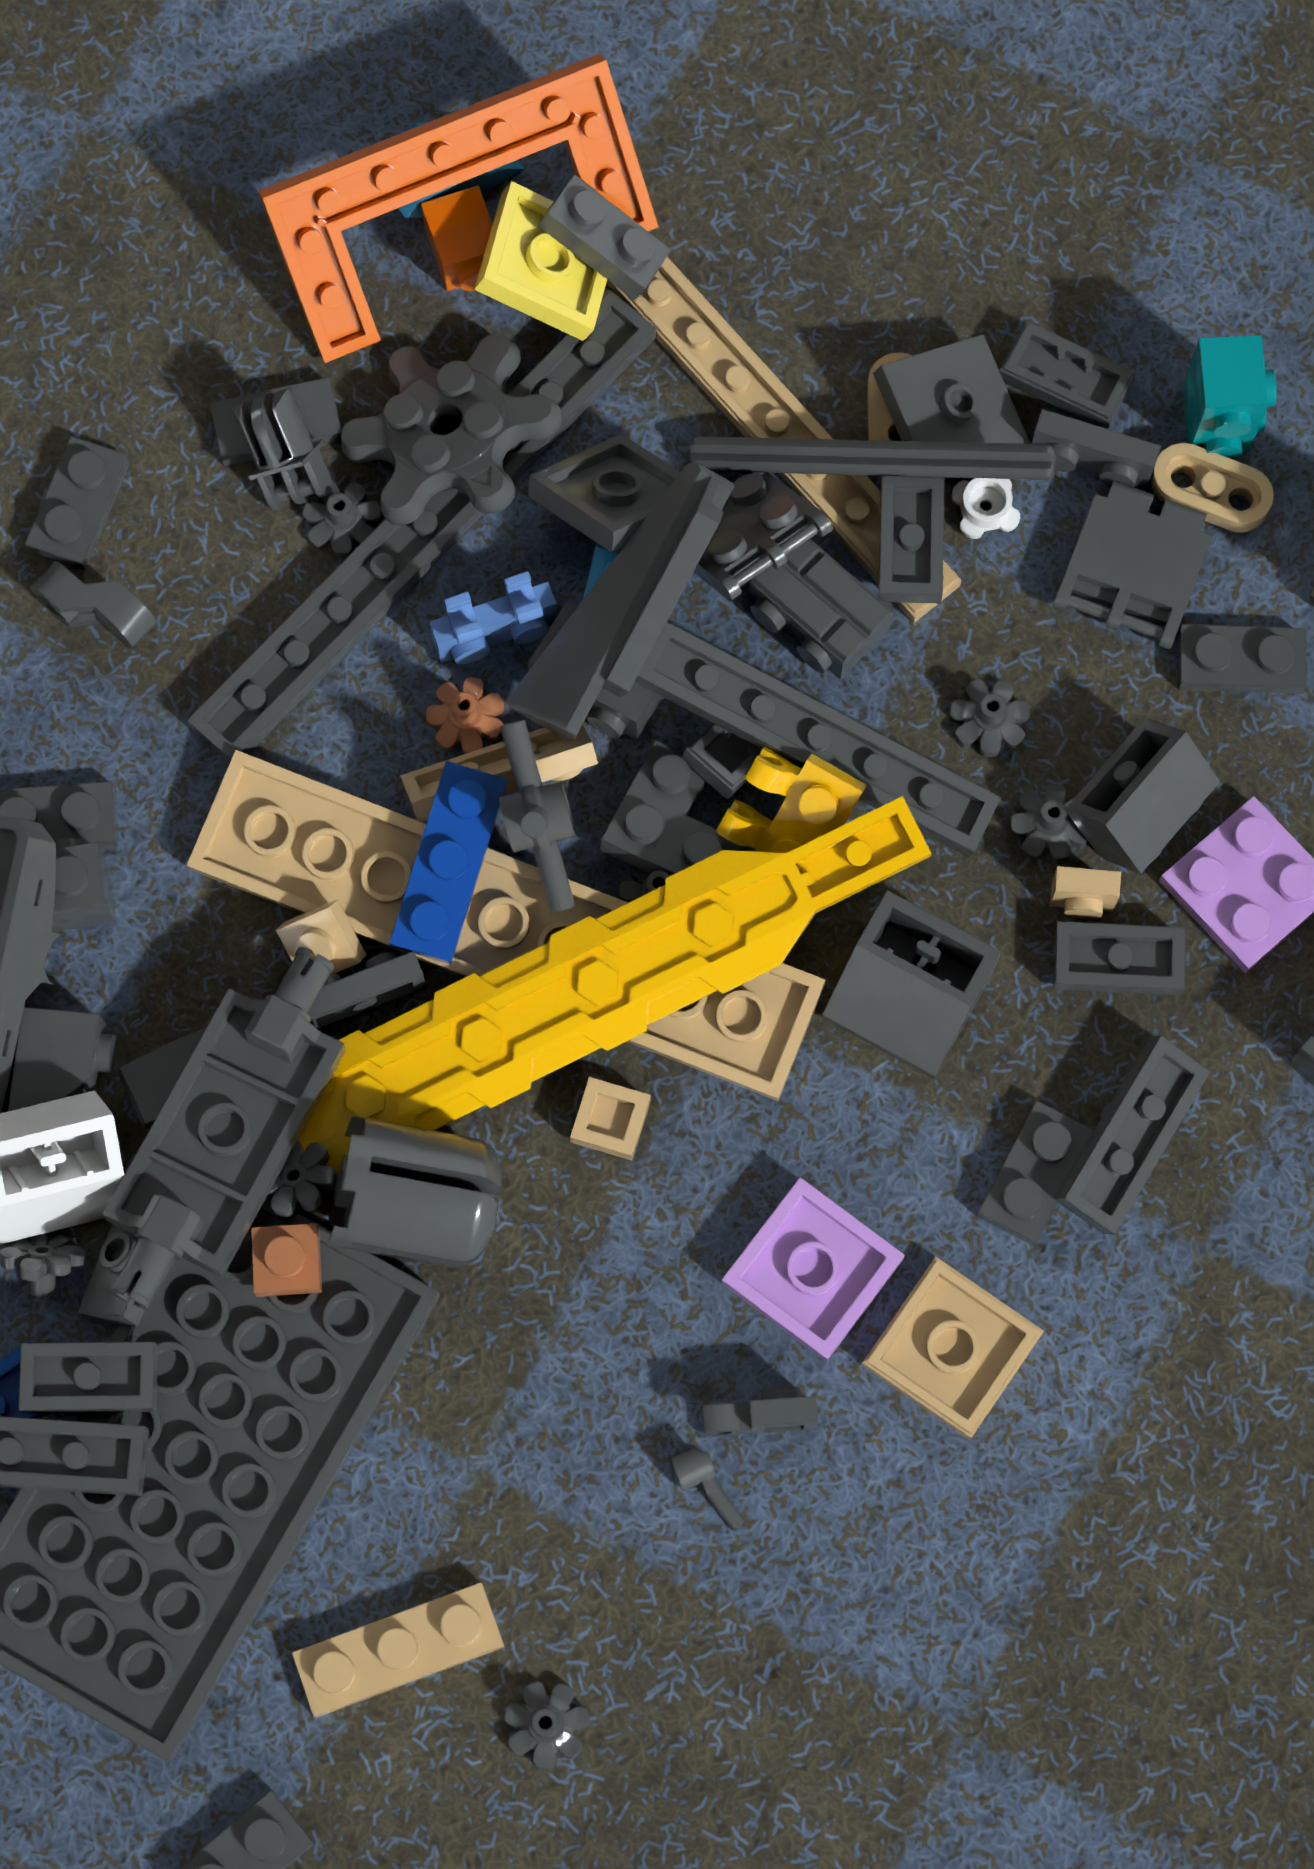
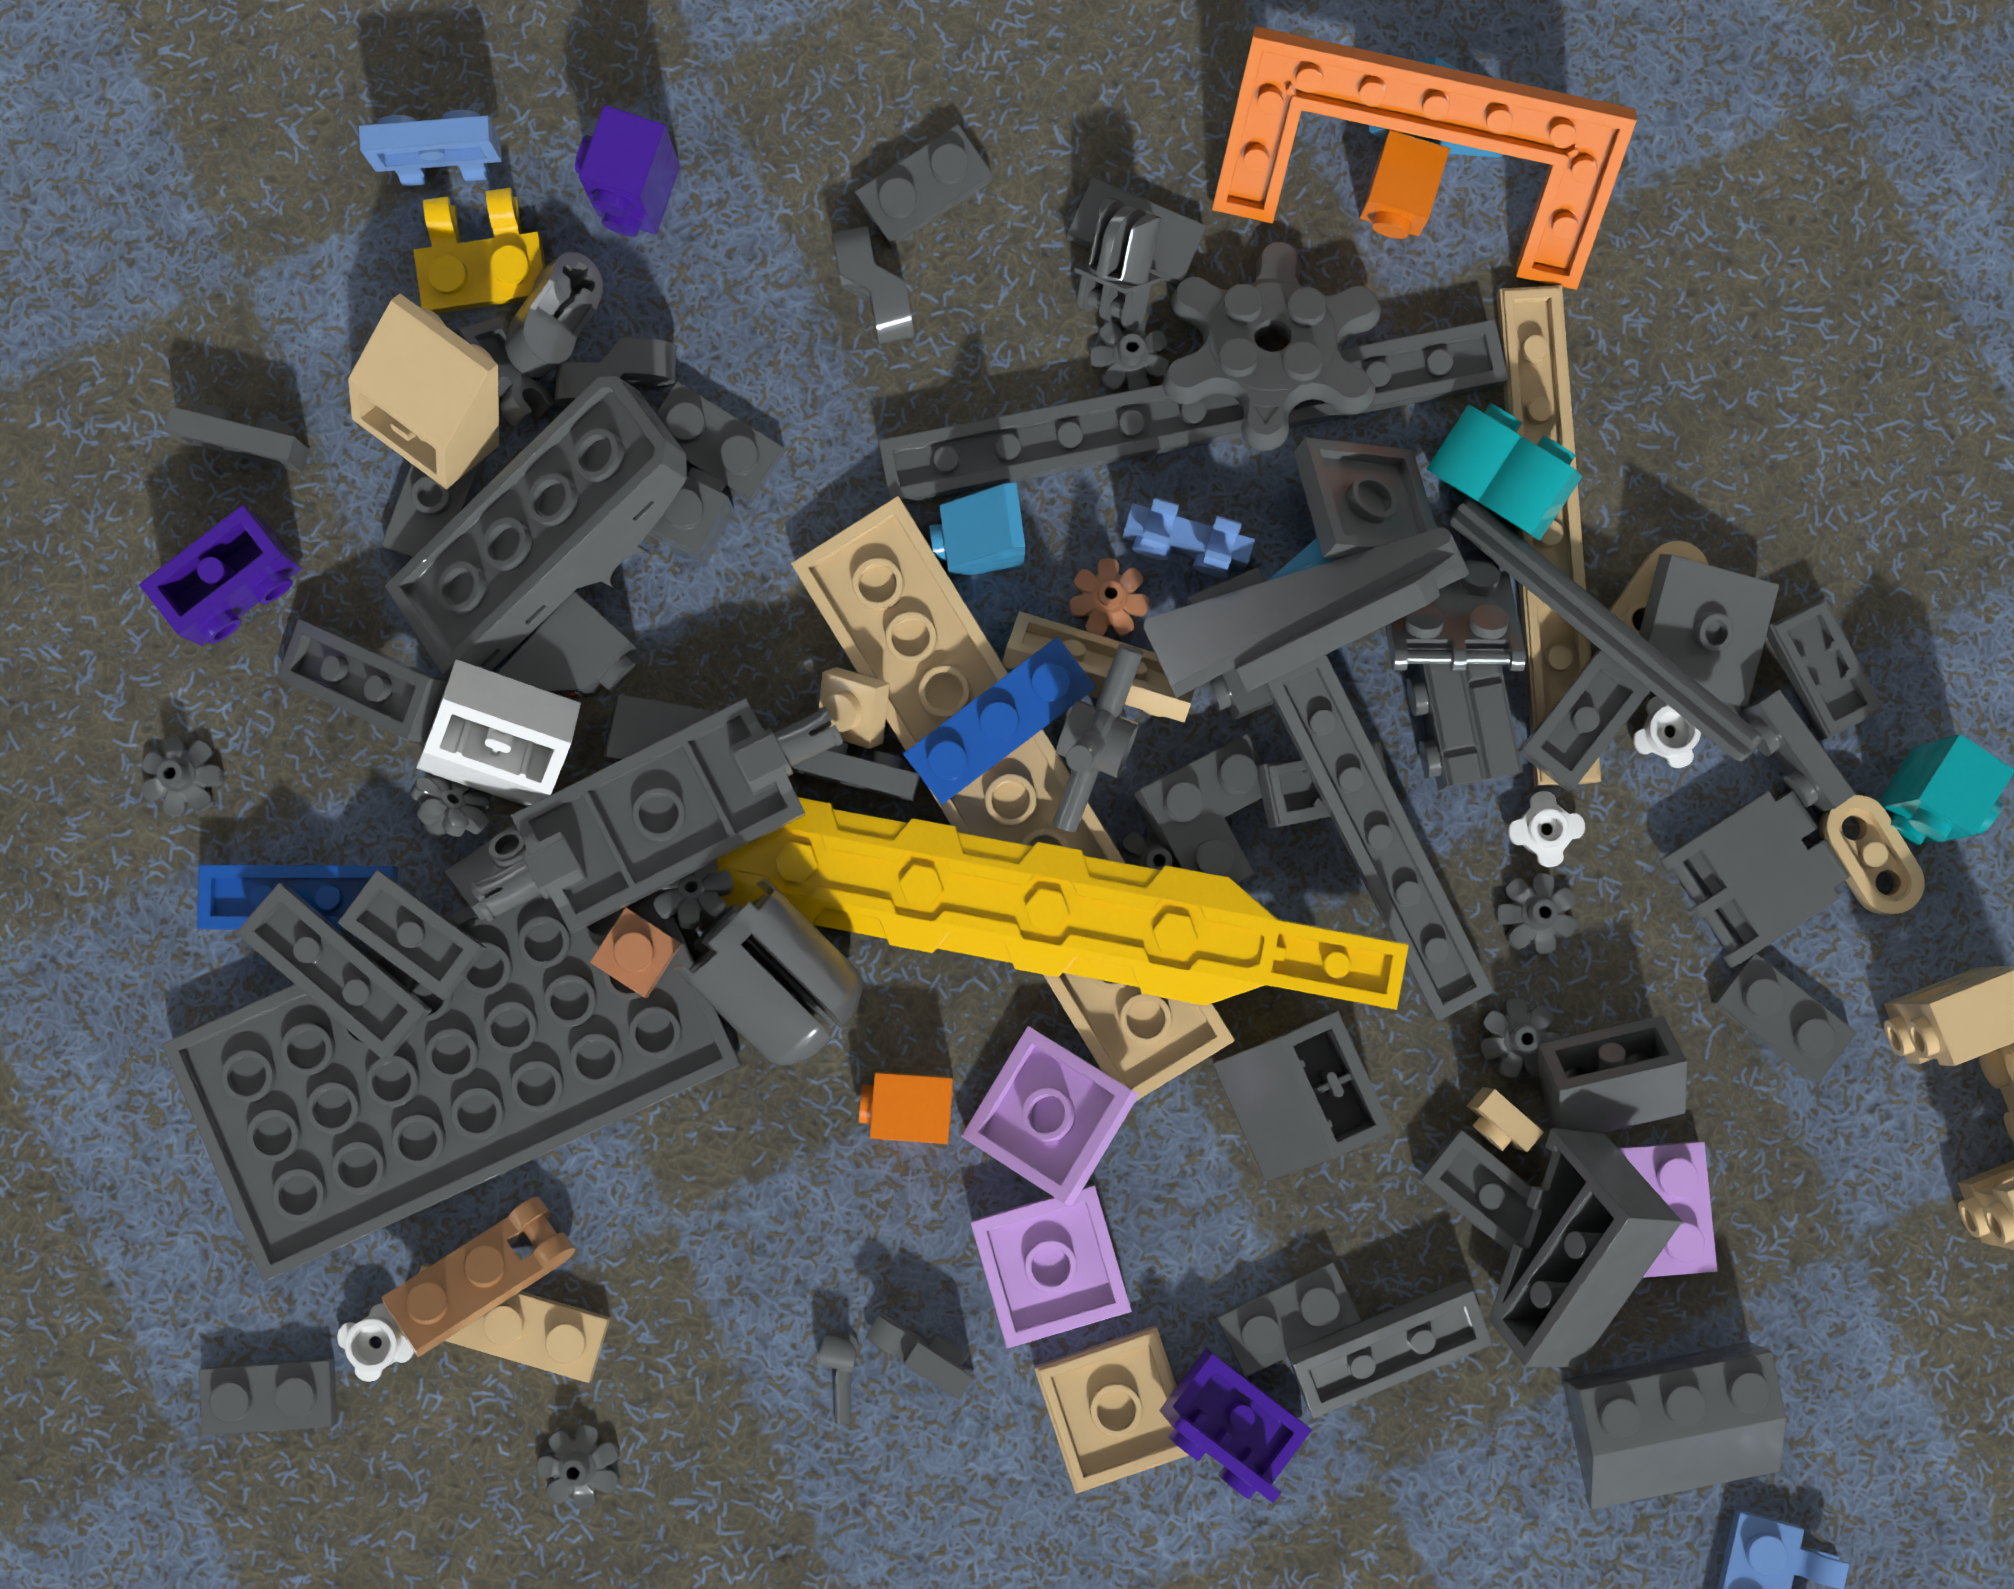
camera: 30 degrees right, 10 degrees up
(292, 1729) = (368, 1360): none -> white plate
(326, 728) = (981, 532): none -> dark azure slope
(346, 1622) = (476, 1277): none -> medium nougat plate
(536, 271) = (1458, 258): light yellow plate -> none
(602, 1225) = (907, 1107): none -> orange brick
(604, 237) = (1522, 271): dark grey plate -> none
(610, 1118) = (979, 1023): tan plate -> none
(705, 394) = (1506, 471): none -> teal brick
(722, 1147) = (1050, 1116): none -> lavender plate
(815, 803) = (1329, 894): yellow plate -> none
(937, 661) = (1528, 832): none -> white plate
(1055, 1282) = (1235, 1424): none -> dark purple bracket
(1221, 942) = (1582, 1252): none -> dark grey wedge

